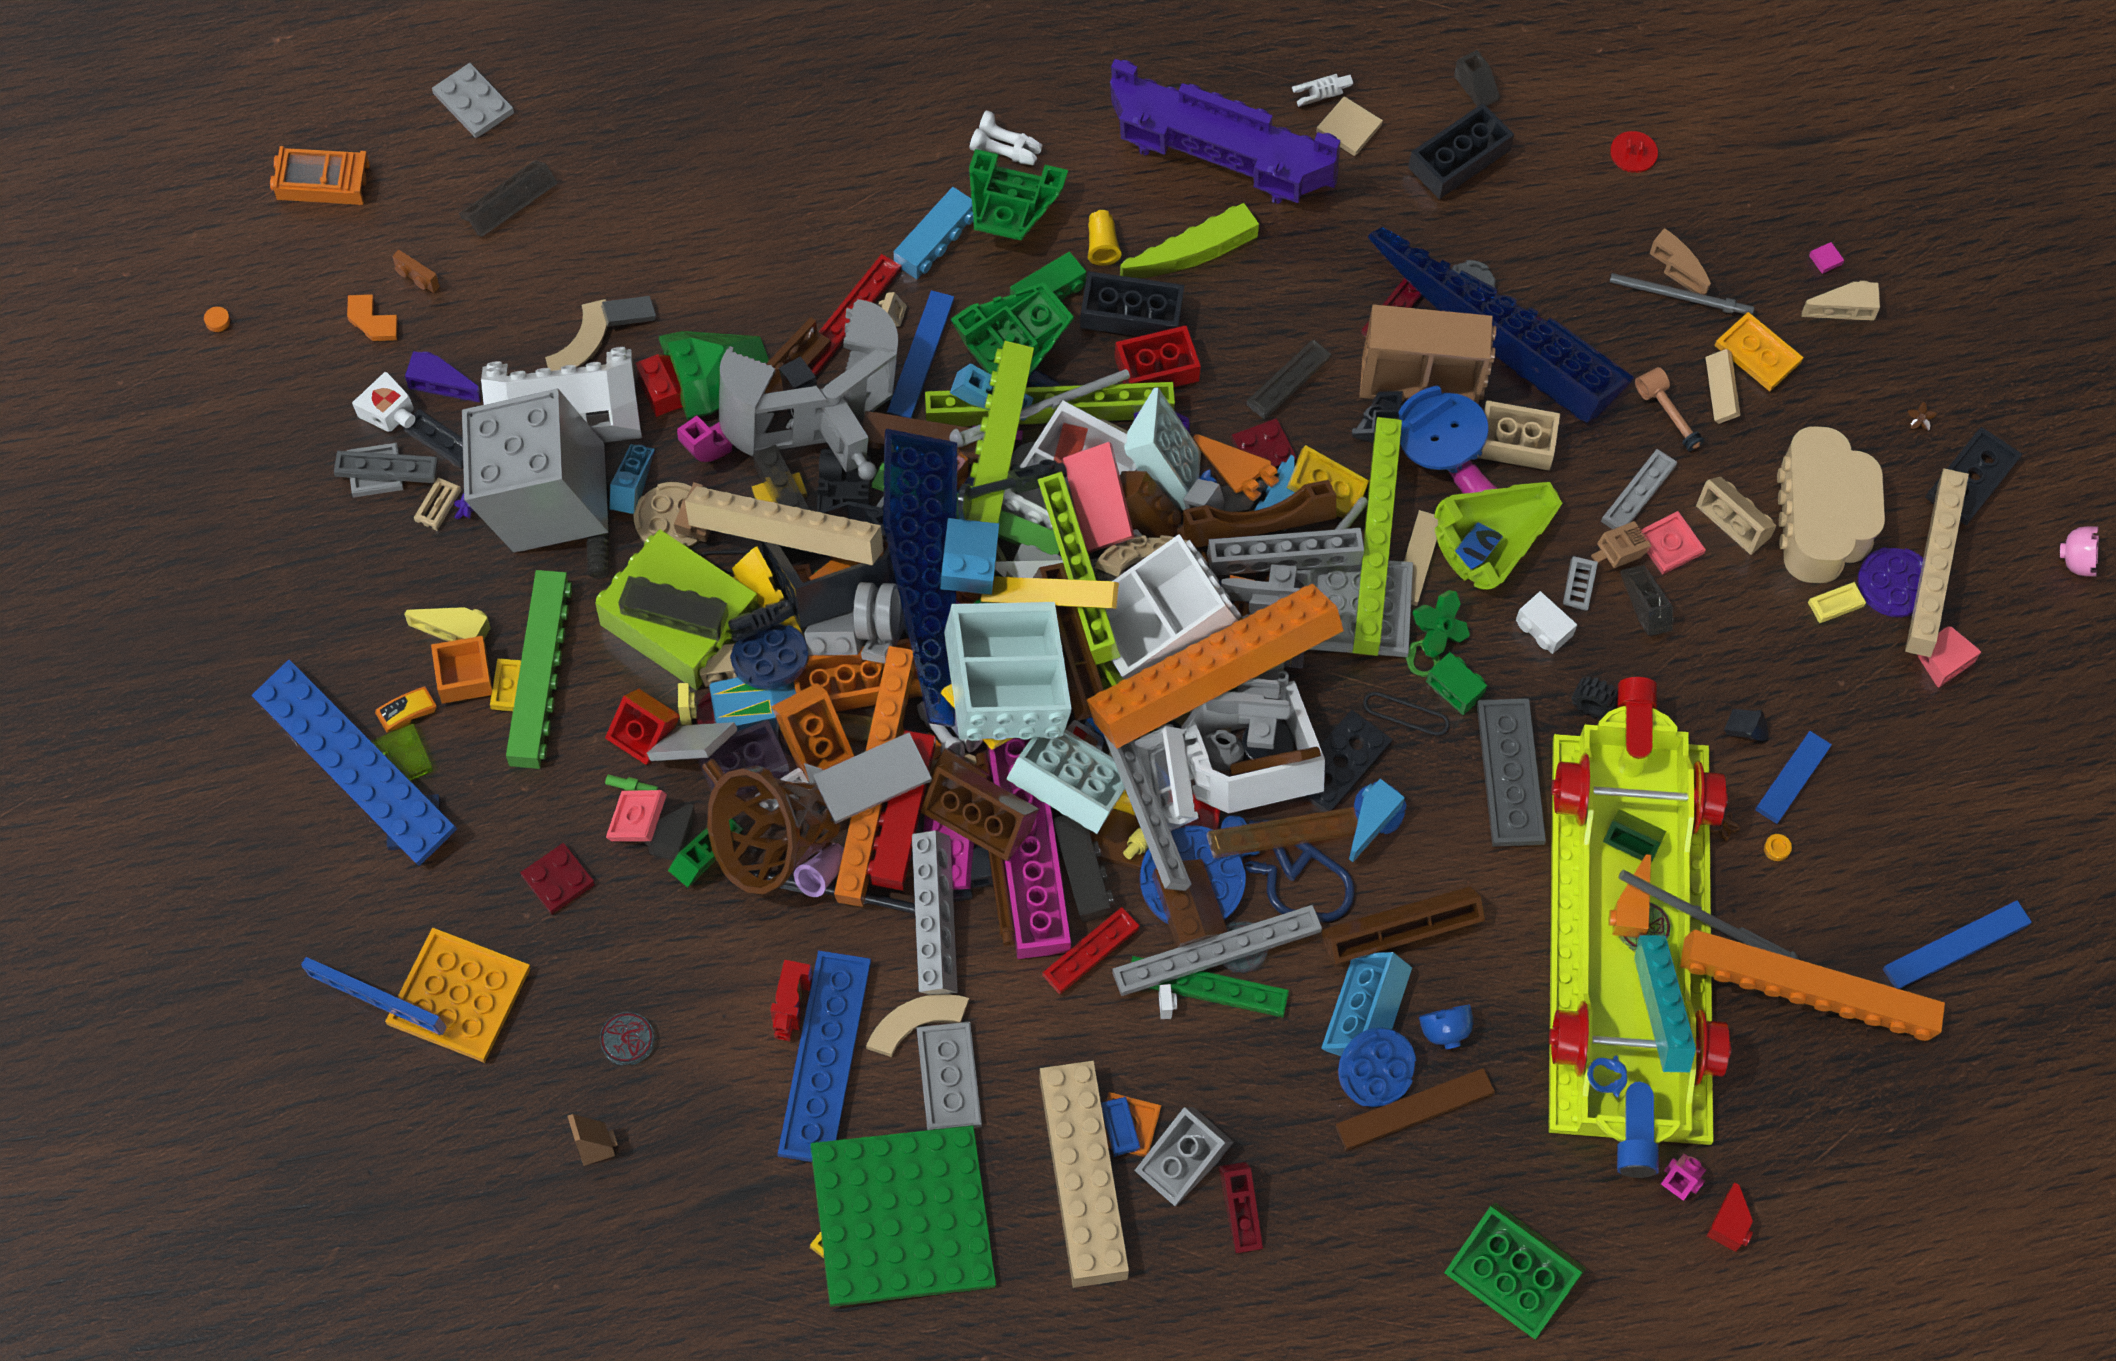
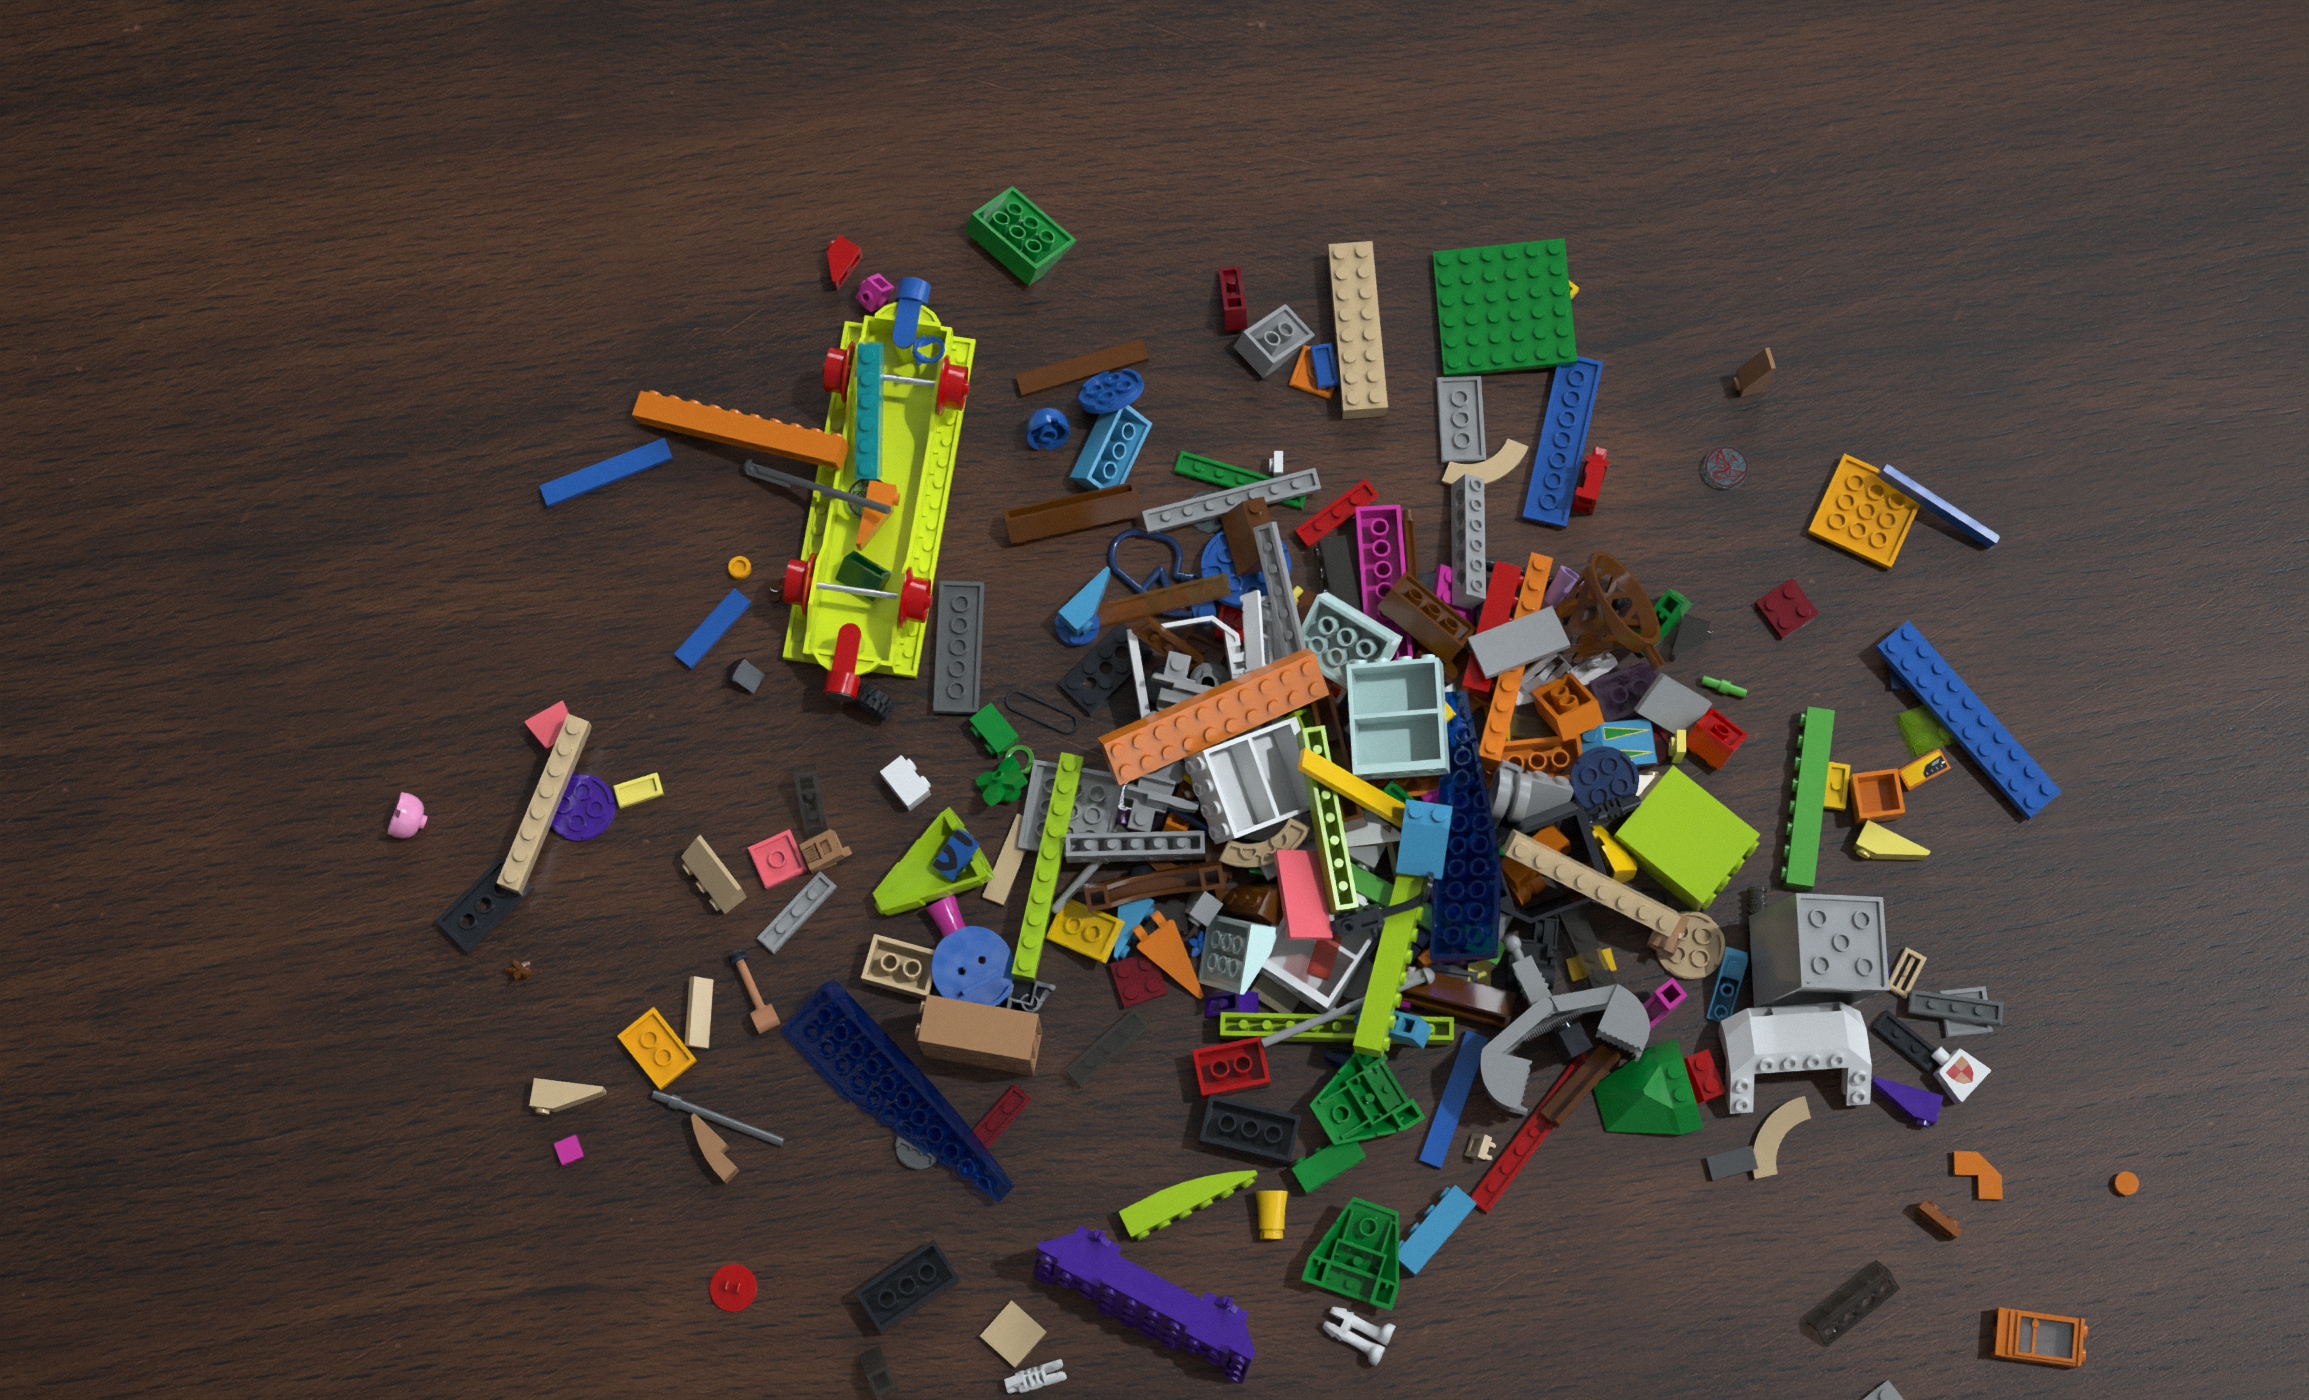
camera: 170 degrees left, 10 degrees up
(636, 815) = (1720, 652): coral tile -> none
(673, 607) = (1690, 816): clear smoke brick -> none
(1584, 564) = (863, 837): light grey slope -> none
(1828, 504) = (629, 873): tan brick -> none

